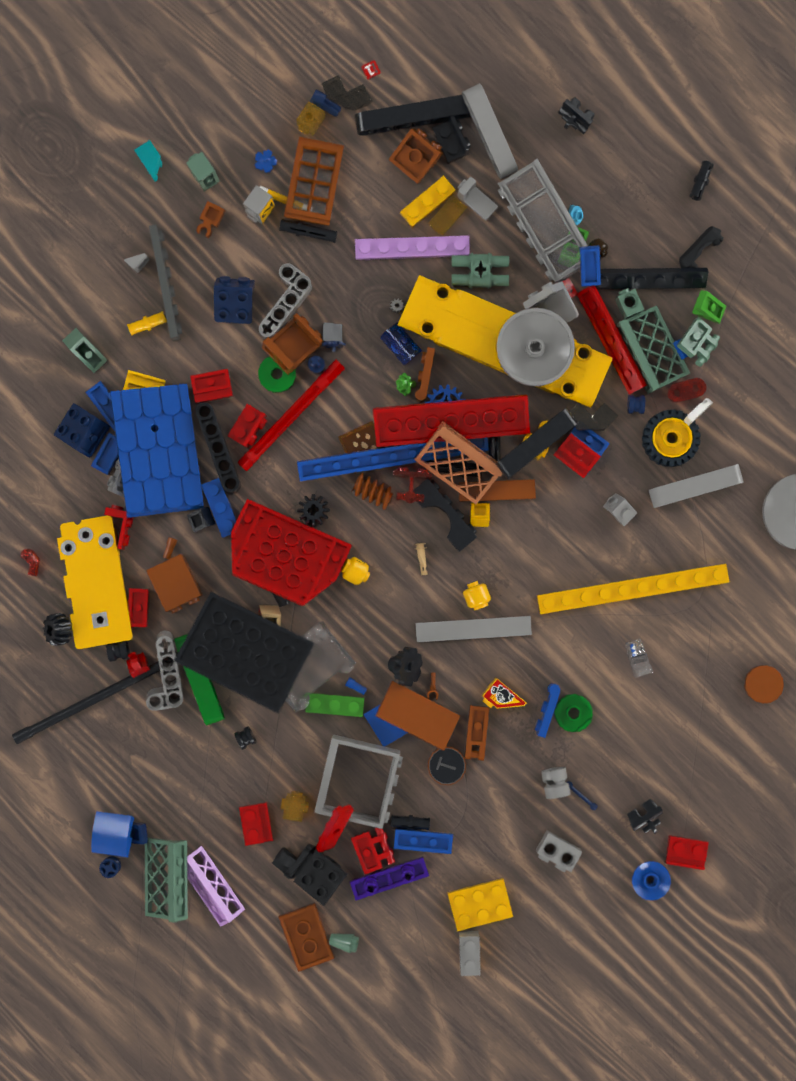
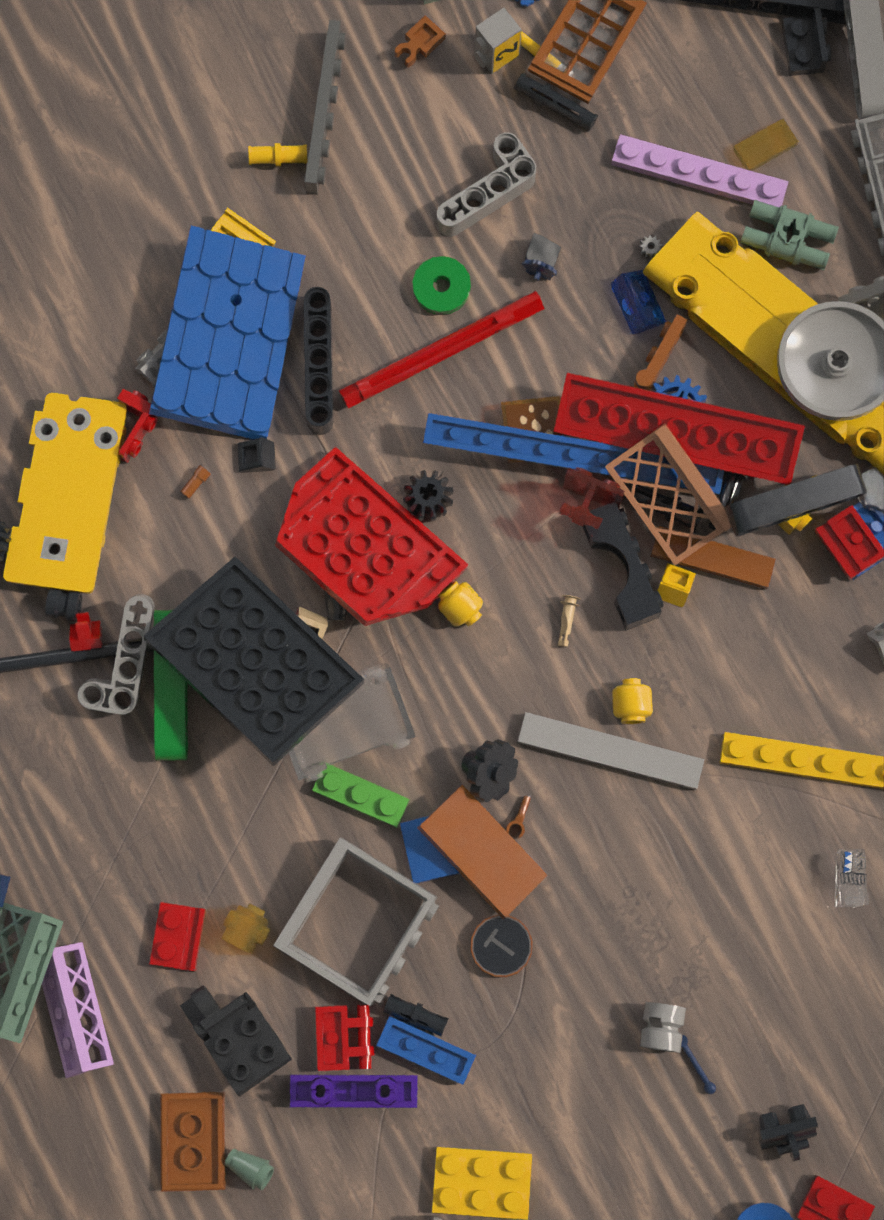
camera: 15 degrees right, 10 degrees down
(81, 430) = (129, 272): dark blue bracket -> none
(84, 350) = (174, 162): sand green slope -> none
(102, 400) = (173, 239): blue tile -> none
(107, 455) = (151, 320): blue tile -> none
(137, 262) = (294, 66): light grey slope -> none
(138, 607) = (118, 551): red plate -> none
(175, 583) = (184, 534): dark orange brick -> none
(211, 386) = (340, 270): red plate -> none
(220, 506) = (290, 445): blue plate -> none
(233, 300) = (413, 162): dark blue bracket -> none
(245, 737) = (207, 798): black wheel -> none
(247, 426) = (373, 345): red bracket -> none
(293, 344) = (479, 249): dark orange panel -> none
(316, 365) = (504, 289): dark blue piece -> none
(334, 828) = (296, 978): red tile -> none
(356, 686) = (397, 771): blue piece -> none
(372, 491) = (526, 496): dark orange piece -> none
(405, 384) = (625, 359): bright green plant -> none
(416, 155) = (748, 46): dark orange plate -> none
(427, 201) = (743, 117): yellow plate -> none
(476, 199) = (813, 132): light grey bracket -> none
(477, 732) = (565, 909): dark orange plate -> none
(501, 696) = (621, 865): slope -> none
(548, 709) = (686, 910): blue plate -> none
(560, 847) = (638, 1133): light grey brick -> none
(573, 724) = (705, 931): green tile -> none

